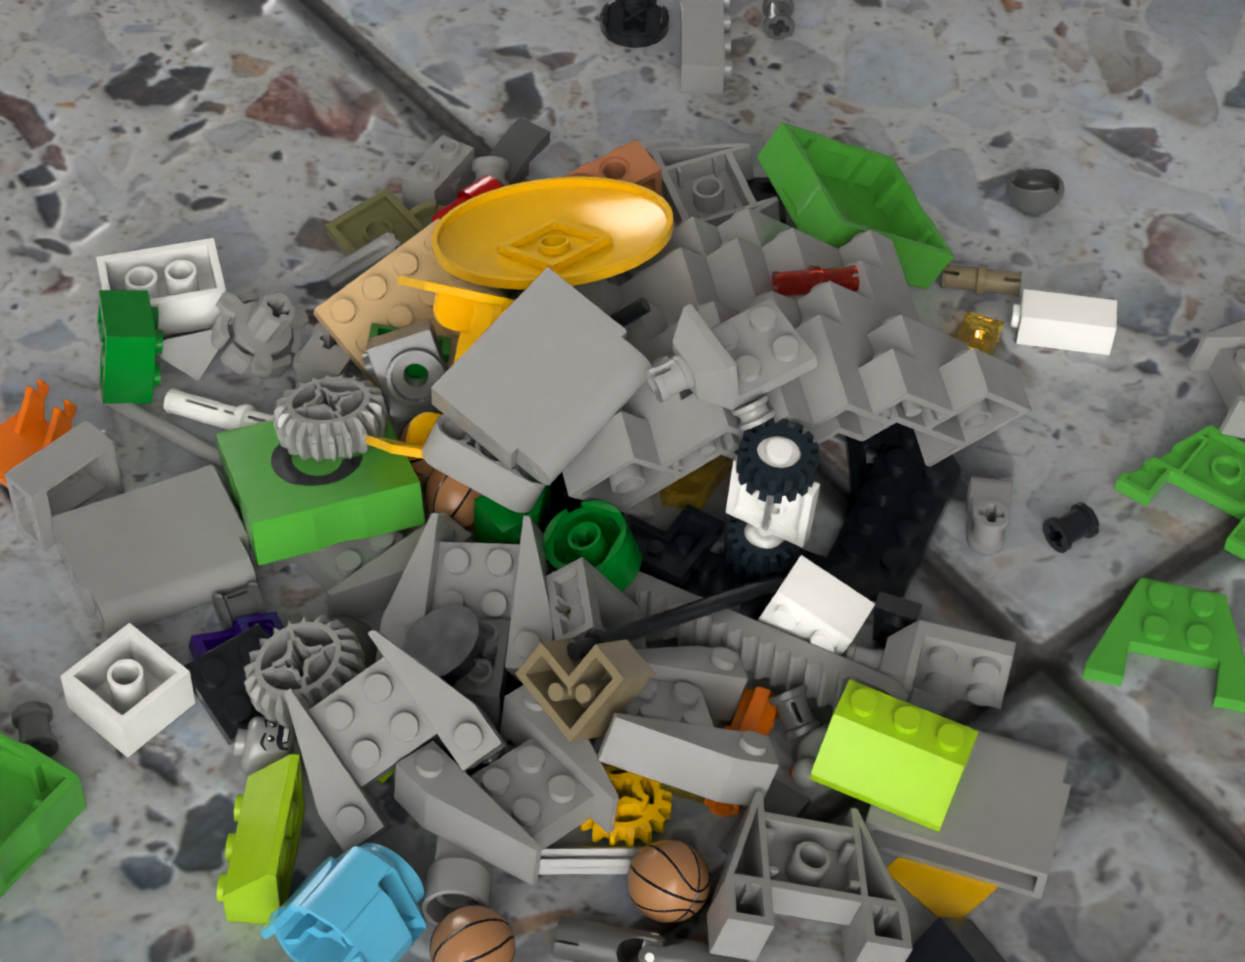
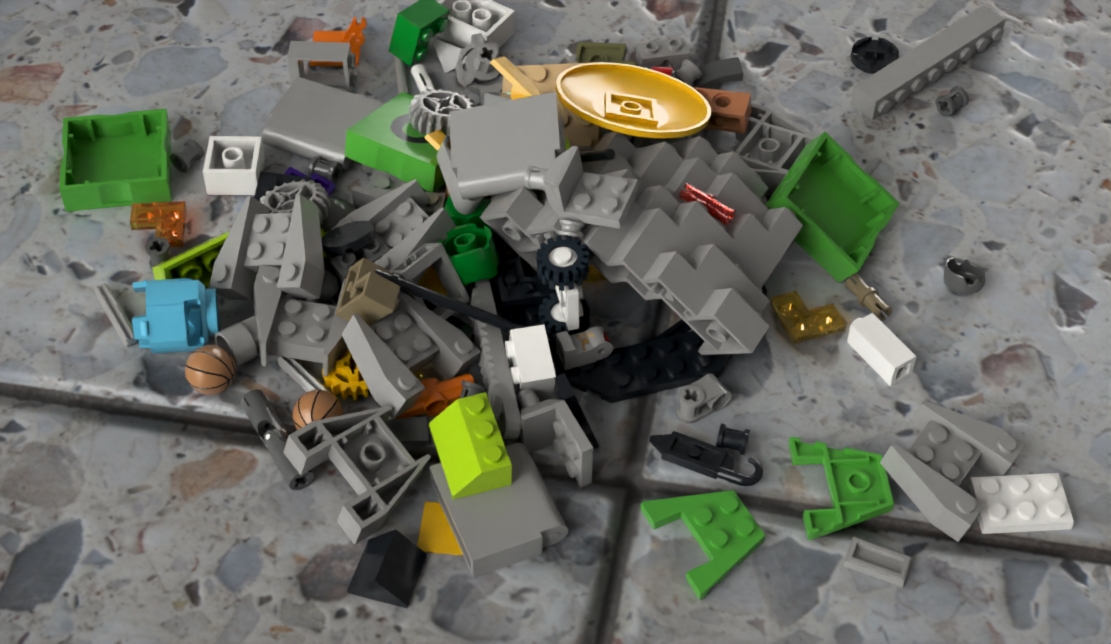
camera: 50 degrees right, 0 degrees up
(122, 827) = (165, 217): none -> clear orange plate
(198, 881) = (158, 250): none -> dark grey bush
(830, 545) = (583, 347): none -> light grey leg
(1072, 571) = (703, 458): none -> black plate

